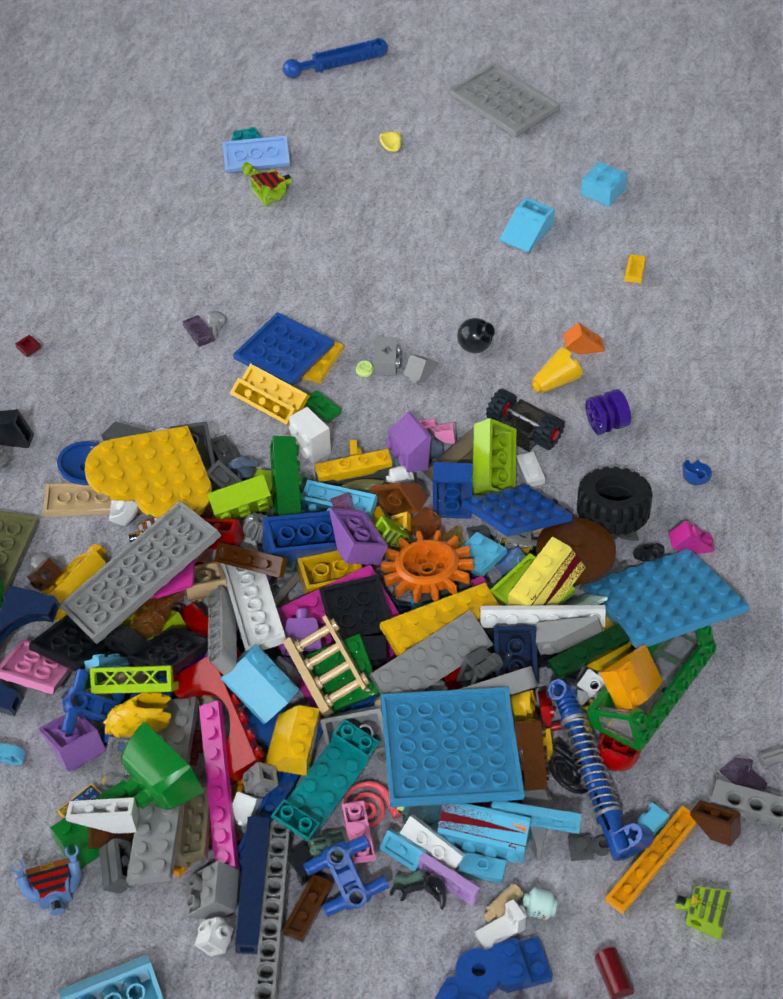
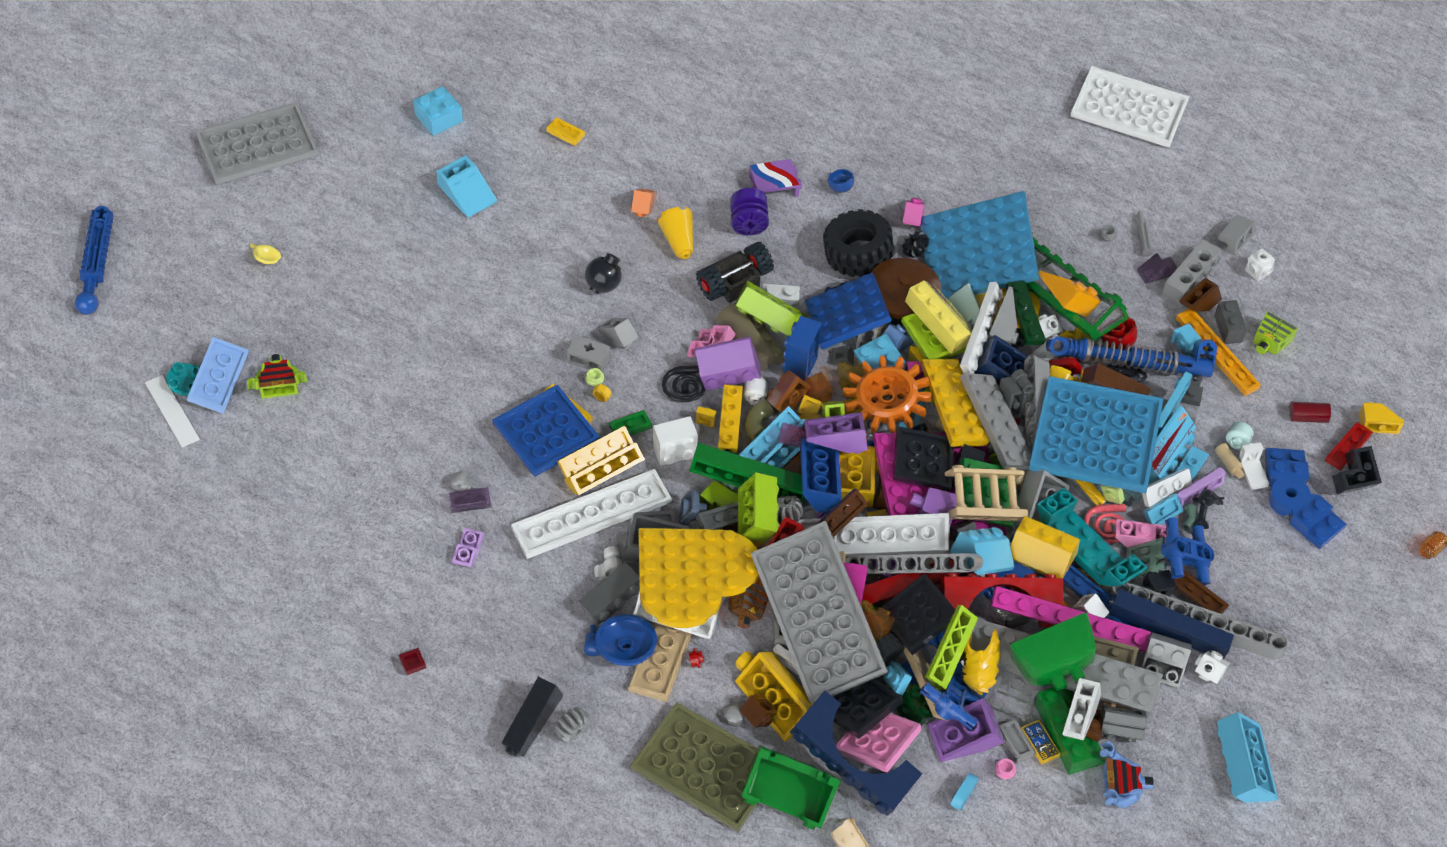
camera: 75 degrees left, 5 degrees up
(42, 782) = (1005, 768): none -> bright pink plate
(77, 783) = (1016, 741): none -> light grey tile
(86, 516) = (696, 658): none -> red plate
(146, 346) = (468, 547): none -> lavender slope
(212, 150) = (172, 411): none -> white sticker
(216, 408) = (590, 513): none -> white plate
(260, 779) = (1075, 587): light grey brick -> none
(348, 377) = (602, 393): none -> yellow tile
(383, 432) = (684, 387): none -> black piece
(667, 422) = (775, 176): none -> panel
(700, 860) = (1230, 322): none -> dark grey brick
(767, 712) = (1108, 233): none -> light grey plate

